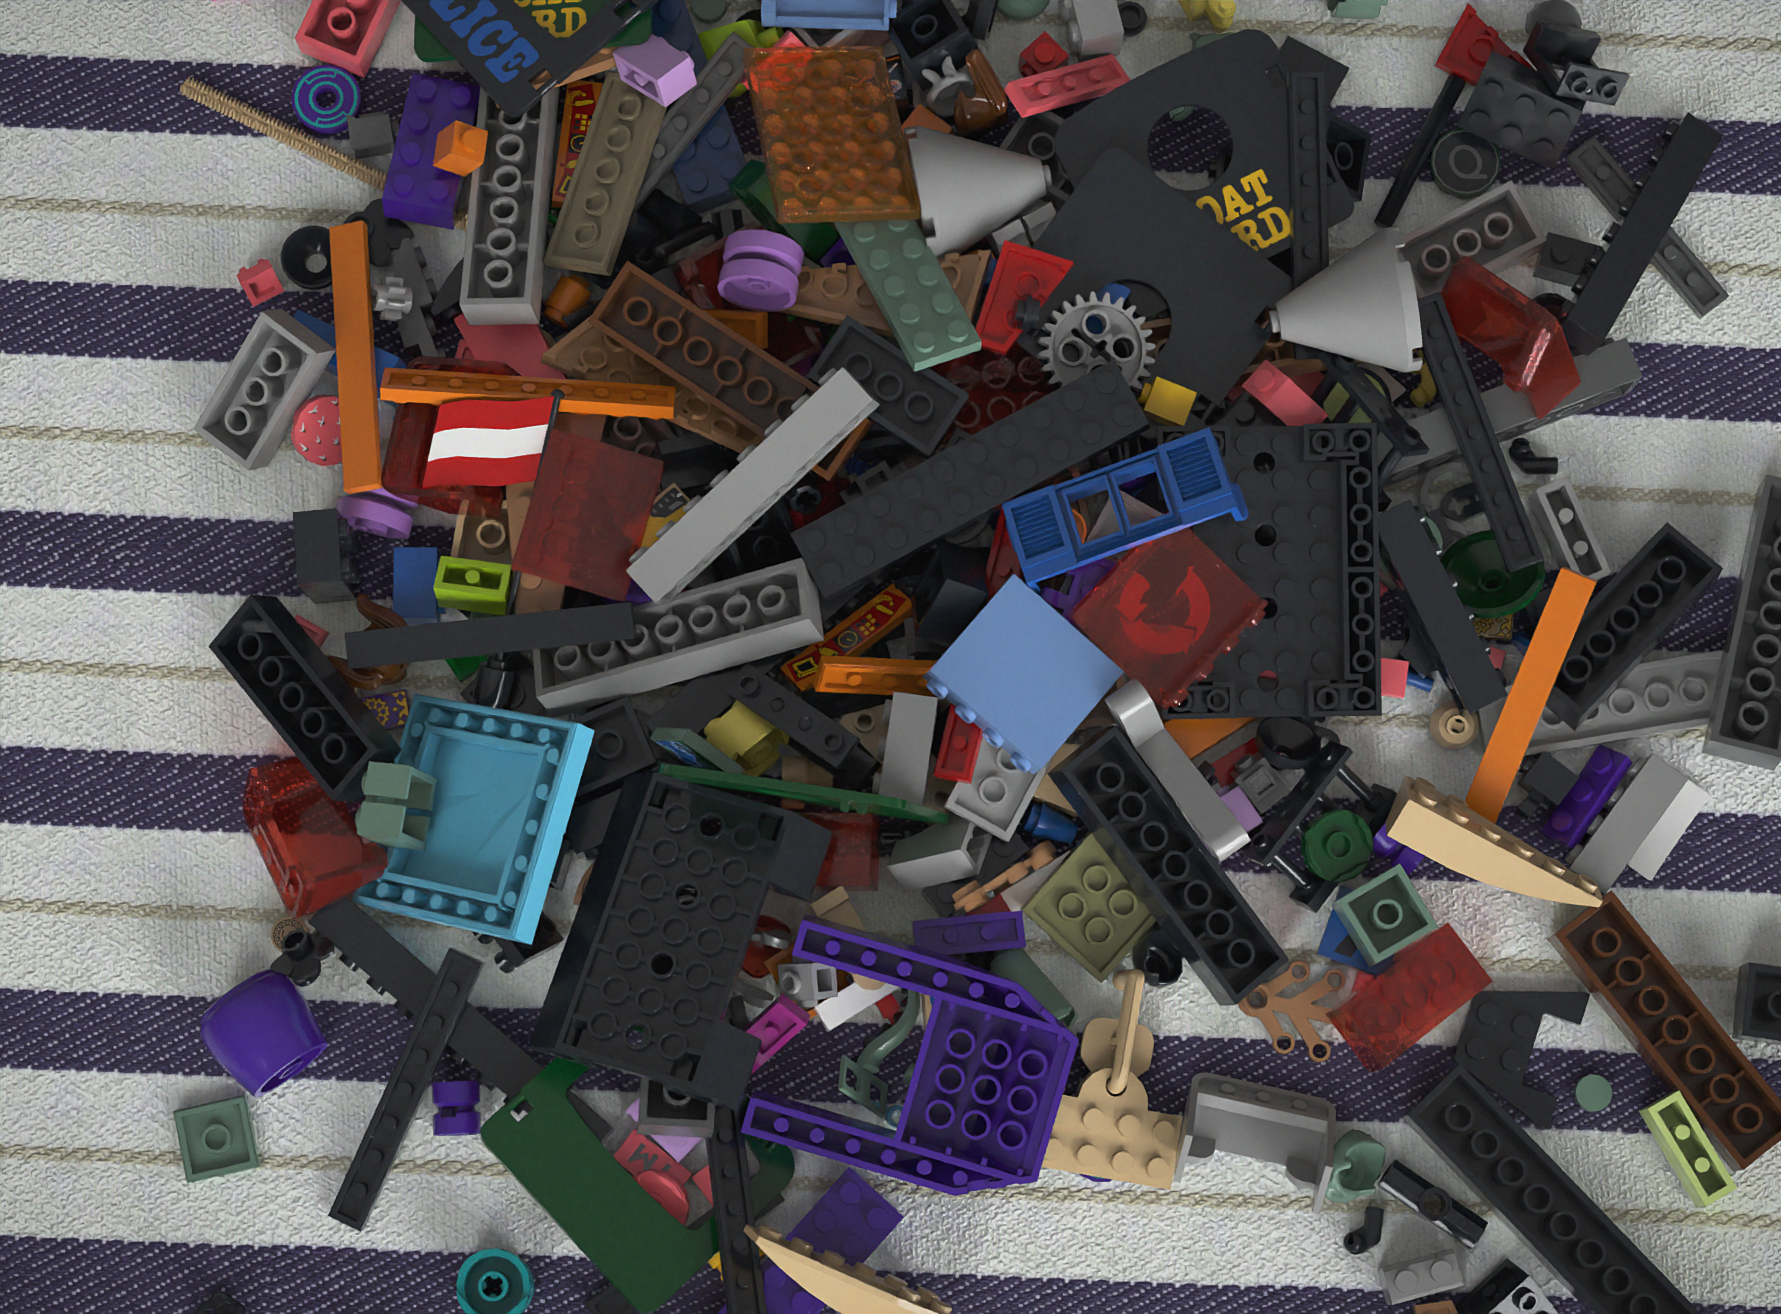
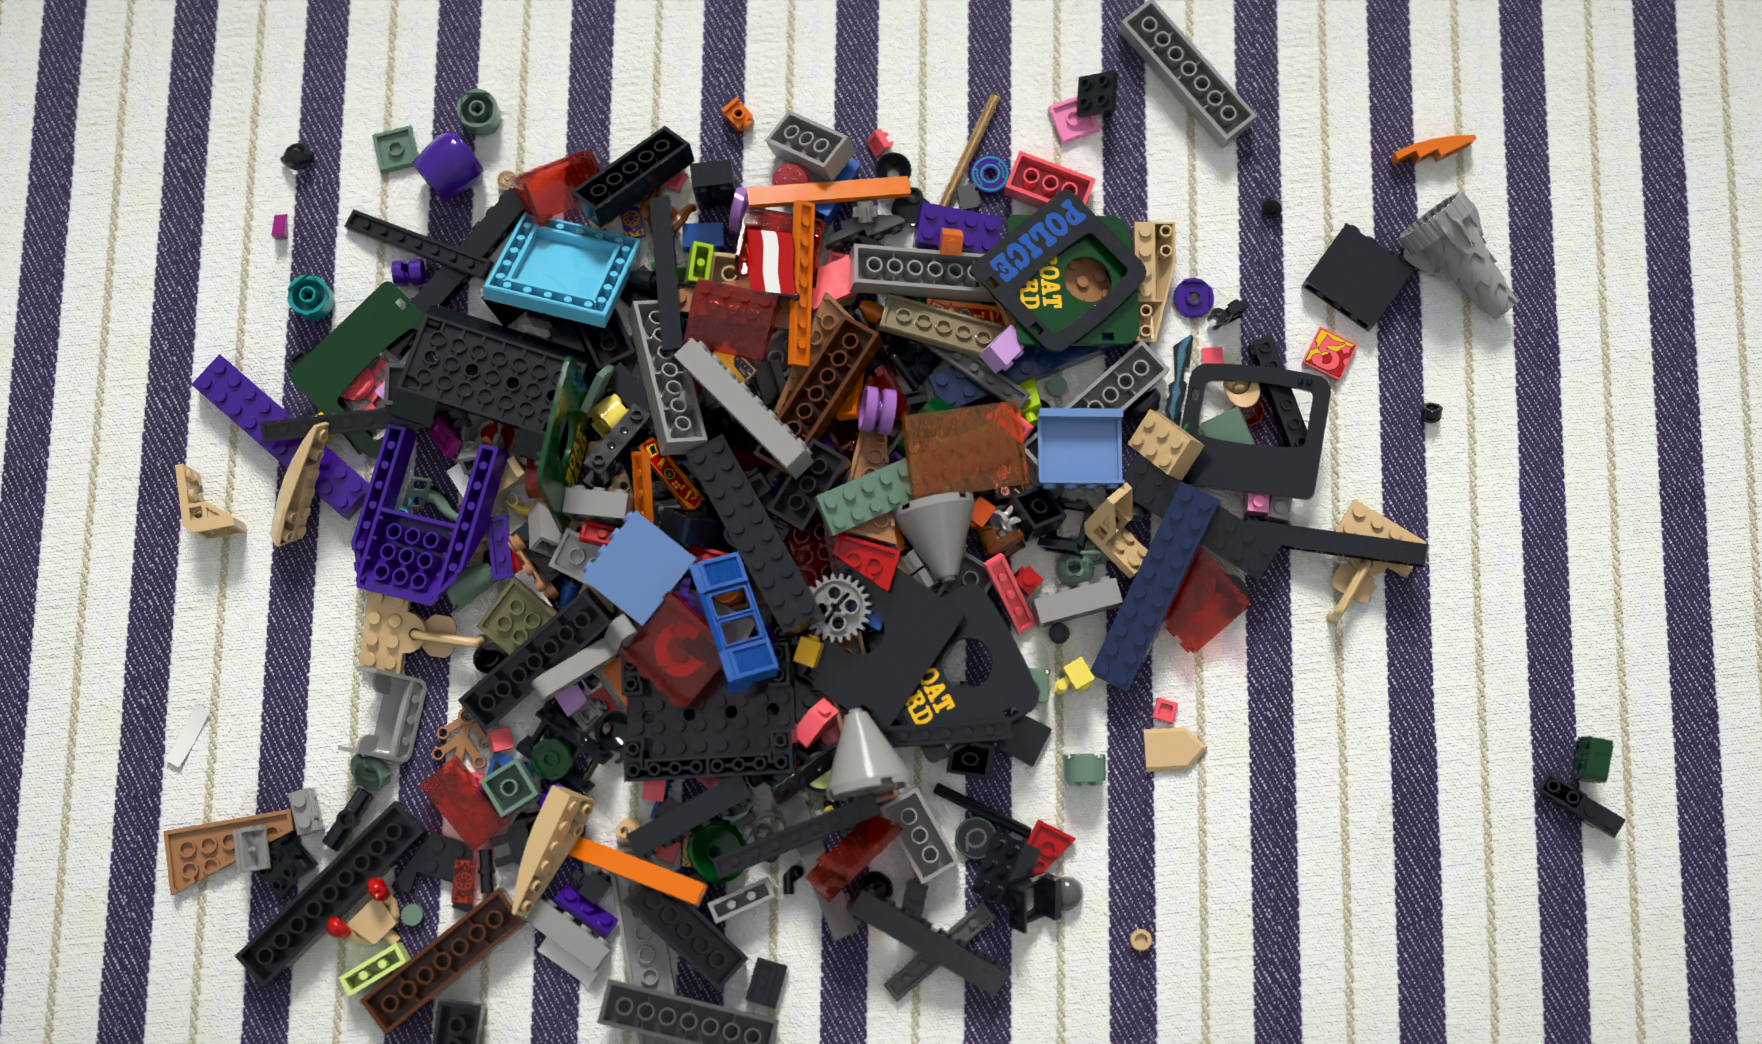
camera: 90 degrees right, 0 degrees up
(147, 965) = (473, 120): none -> sand green brick
(194, 535) = (730, 114): none -> orange brick
(302, 956) = (490, 184): black plate -> none
(388, 793) = (561, 219): sand green piece -> none
(897, 905) = (521, 510): none -> light yellow arm
(1026, 311) = (854, 562): black plate -> none
(1298, 941) = (501, 739): none -> coral tile
(1367, 1235) = (332, 782): black arm -> none
(1468, 908) = (516, 837): none -> black connector
(1520, 965) = (486, 871): none -> black pin
(1539, 1001) = (463, 881): none -> clear red tile
(1605, 1156) = (373, 921): none -> tan torso
(1700, 502) = (766, 982): none -> black plate

